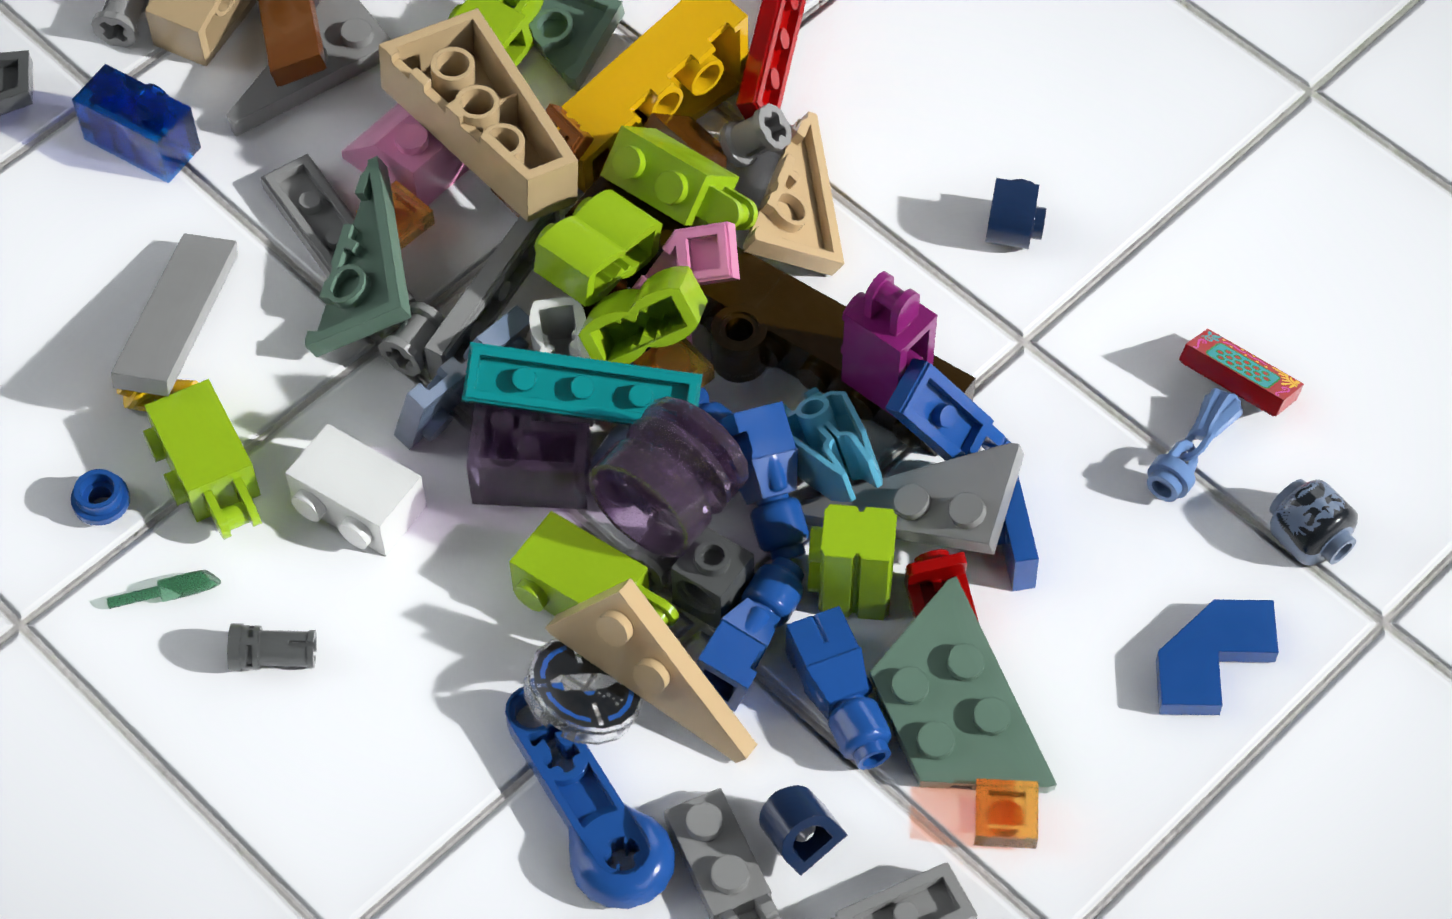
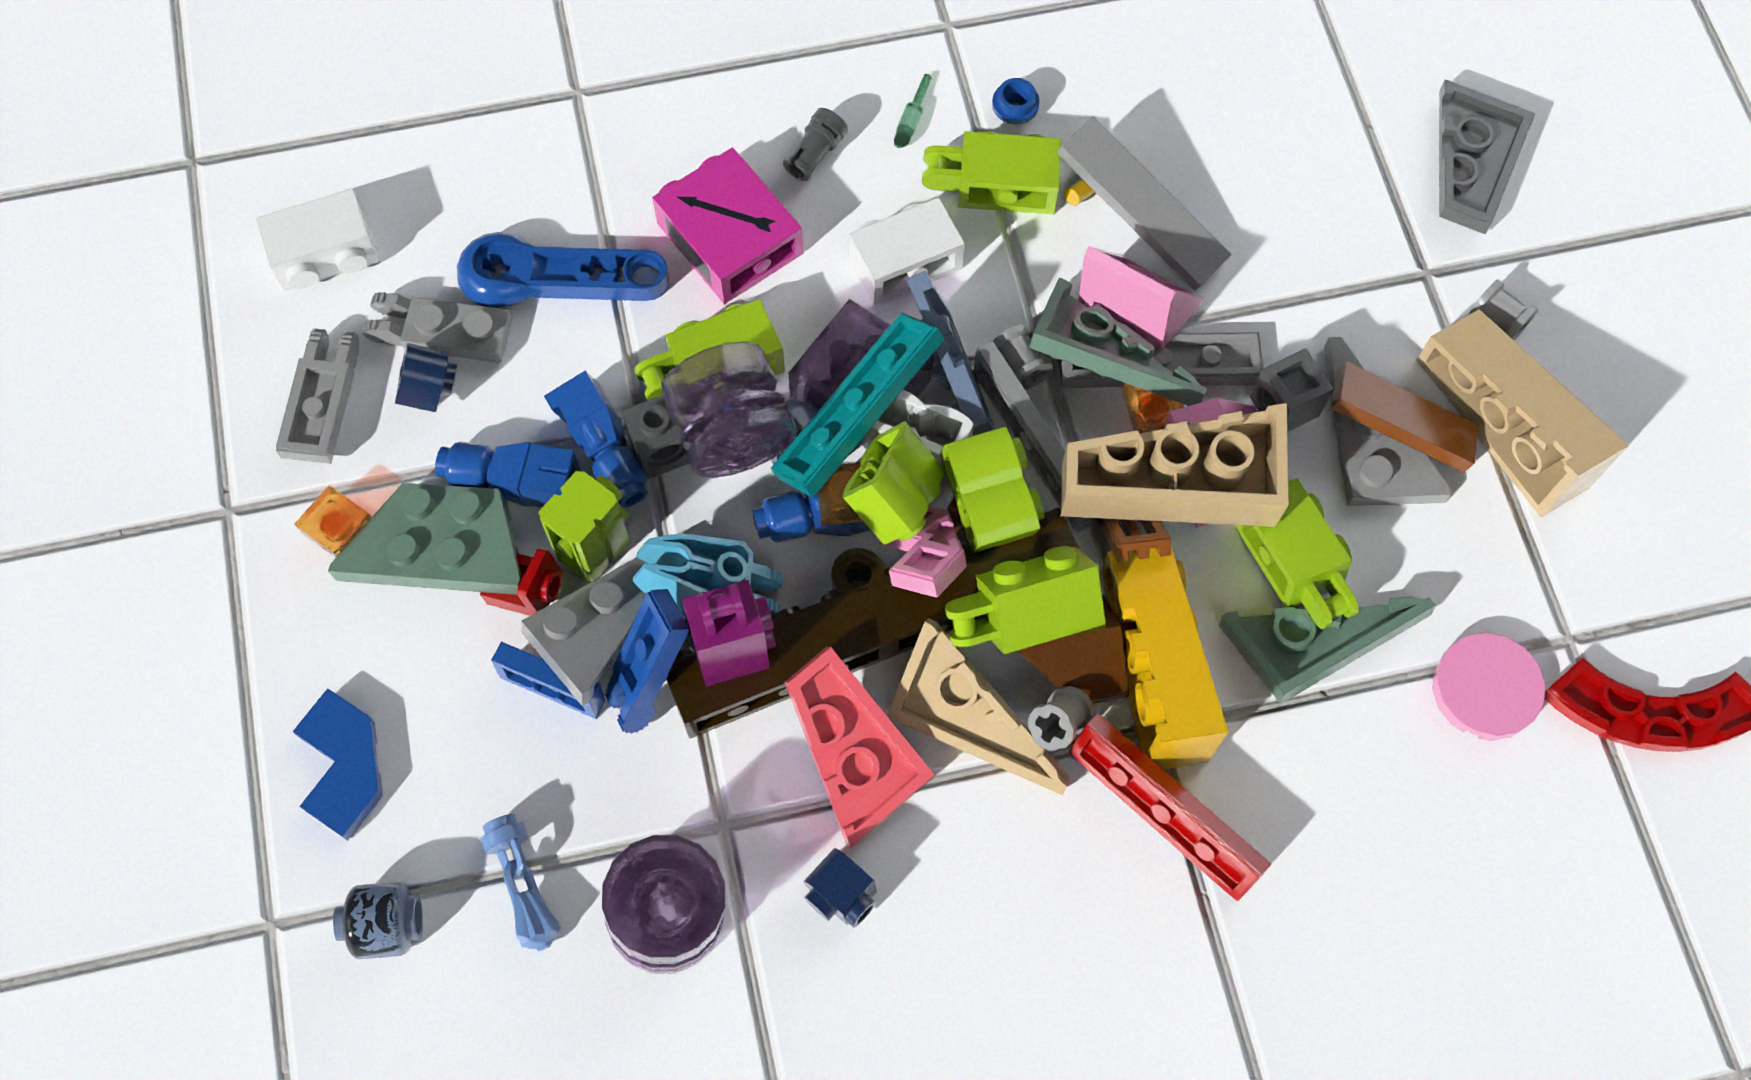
camera: 120 degrees right, 10 degrees up
(137, 122) = (1363, 264): clear blue brick -> none
(285, 271) = (1136, 296): none -> bright pink slope
(322, 111) = (1295, 382): none -> dark grey brick
(427, 664) = (728, 224): none -> dark pink brick
(578, 696) = (632, 305): tile -> none
(637, 648) = (606, 343): tan wing -> none
(772, 470) = (735, 515): blue piece -> none
(903, 245) = (854, 744): none -> coral wing
(1133, 305) = (668, 871): none -> clear purple wheel
(1241, 372) = (555, 971): red tile -> none

